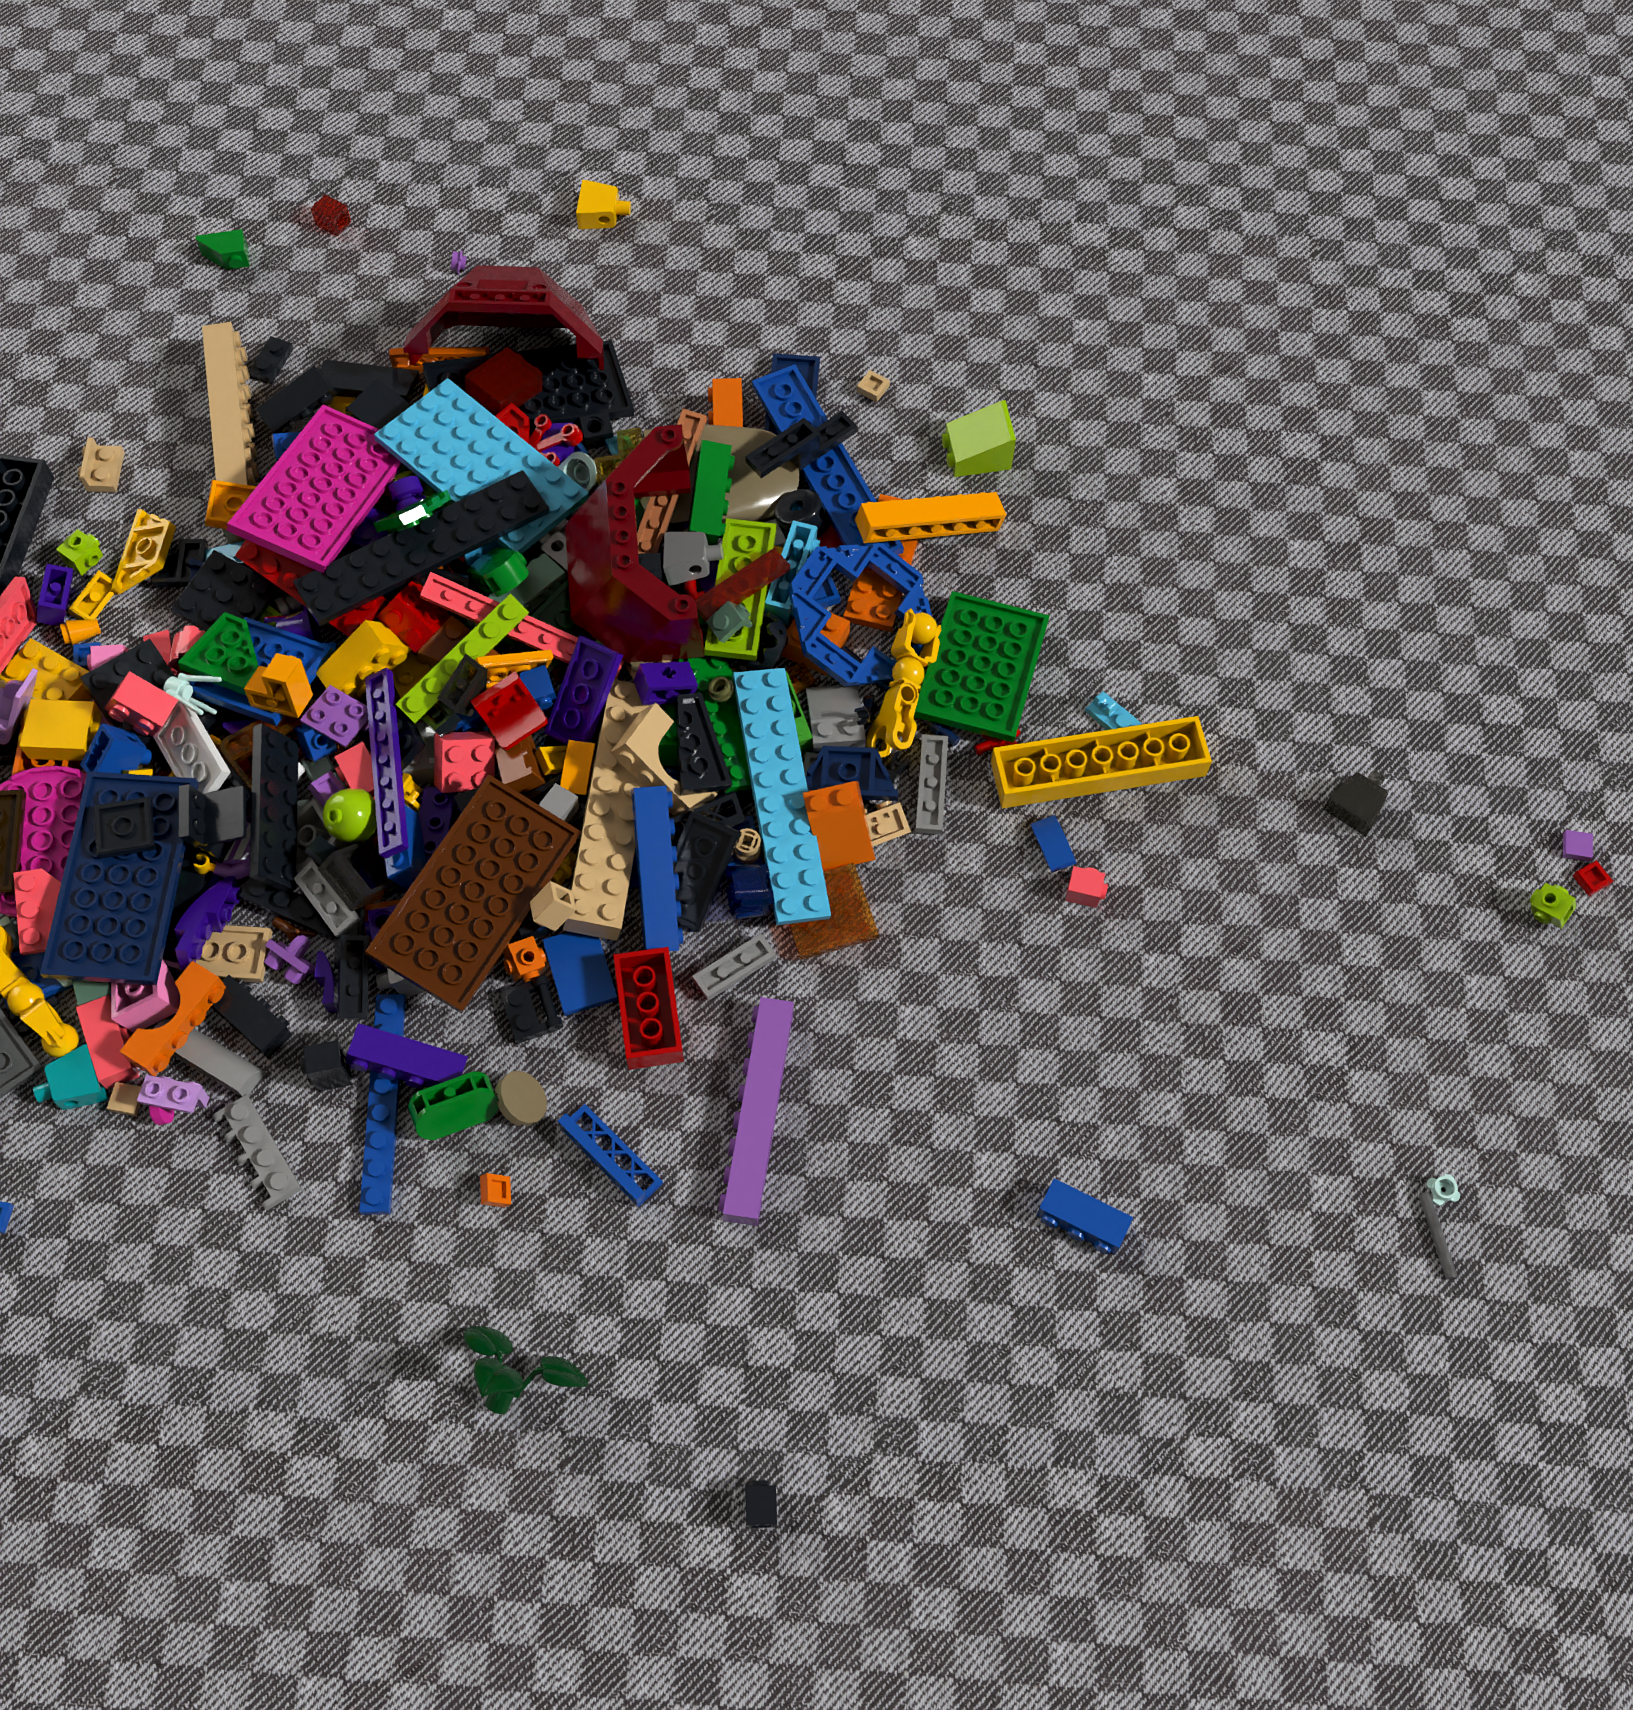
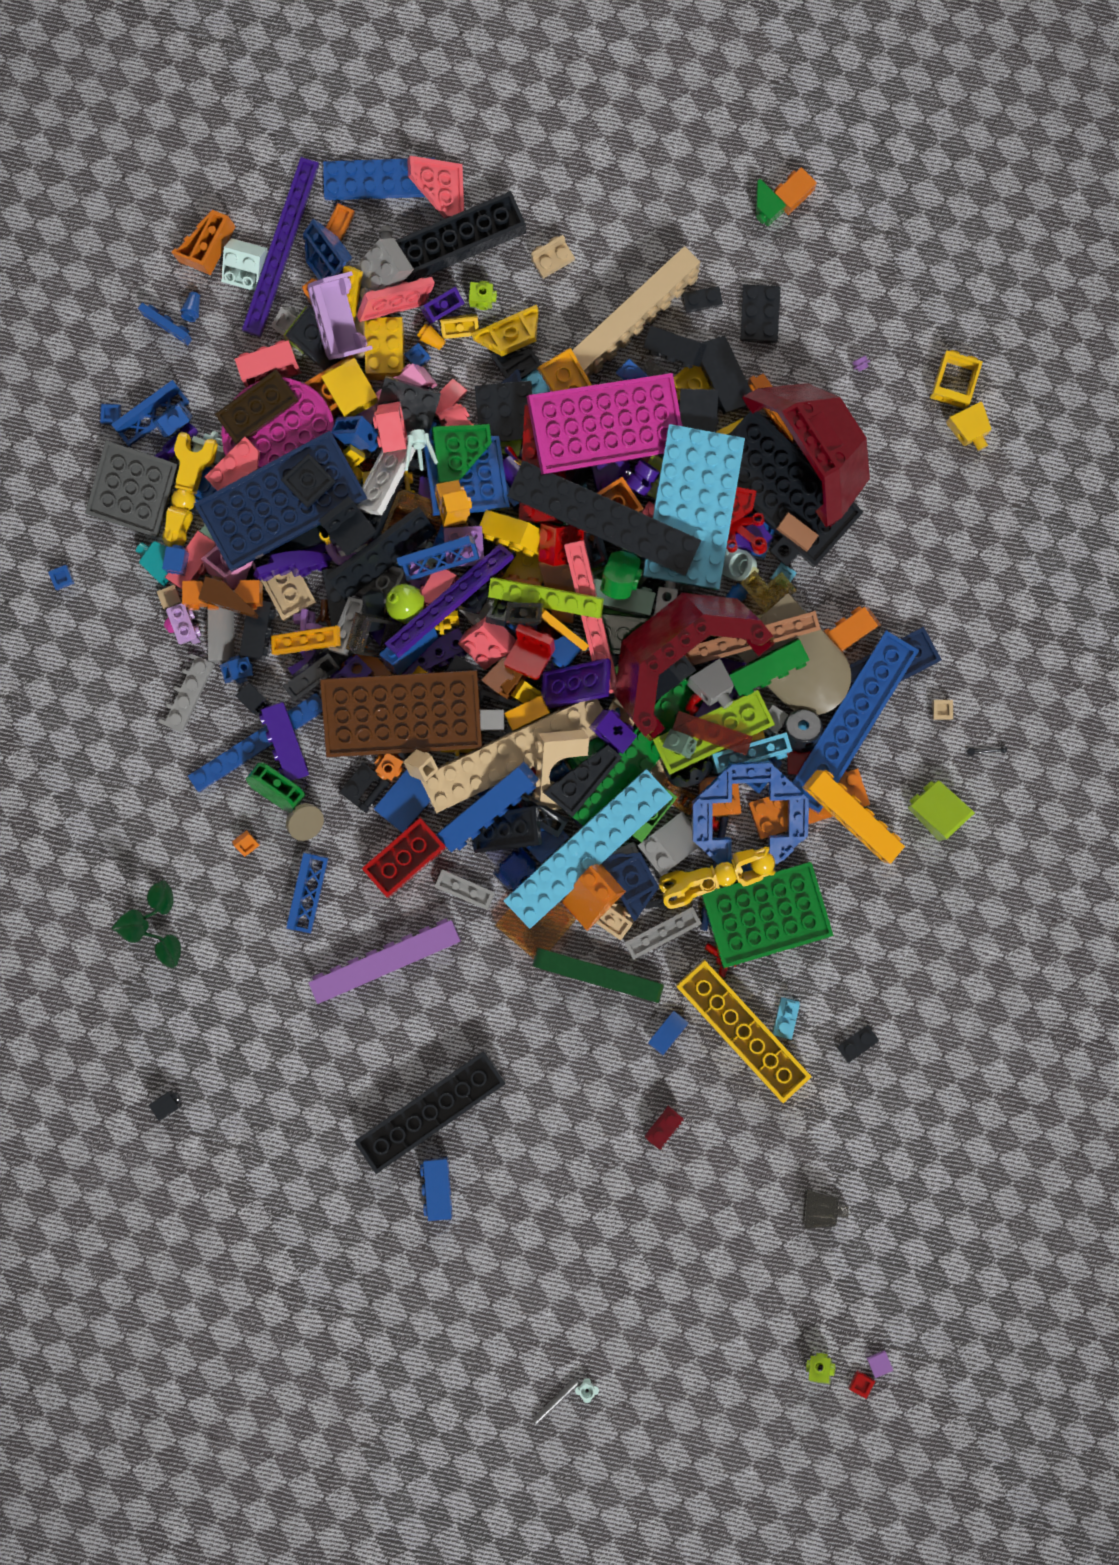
camera: 60 degrees right, 20 degrees up
(89, 1049) = (175, 560): none -> blue brick
(180, 1006) = (219, 594): none -> reddish brown slope
(234, 214) = (795, 189): none -> orange brick
(277, 1066) = (236, 670): none -> blue brick
(305, 959) = (305, 640): none -> light orange tile
(318, 740) = (432, 552): none -> blue fence
(331, 215) = (841, 250): clear red brick -> none
(331, 319) = (760, 313): none -> black plate
(413, 514) = (622, 496): green plate -> none
(503, 381) = (771, 473): clear red brick -> none
(551, 208) = (951, 397): none -> yellow window
(585, 400) = (797, 532): none -> nougat tile
(721, 689) = (632, 762): olive plate -> none
(748, 852) = (544, 851): tan wheel -> none
(801, 444) = (848, 701): black bracket -> none
(866, 713) = (692, 861): black piece -> none
(934, 876) = (598, 975): none -> dark green beam
(936, 388) = (971, 751): none -> black hinge
(981, 1166) = (430, 1112): none -> black brick
(1086, 886) = (651, 1070): coral brick -> none
(1163, 910) = (664, 1127): none -> dark red brick
(1187, 663) = (857, 1043): none -> black plate

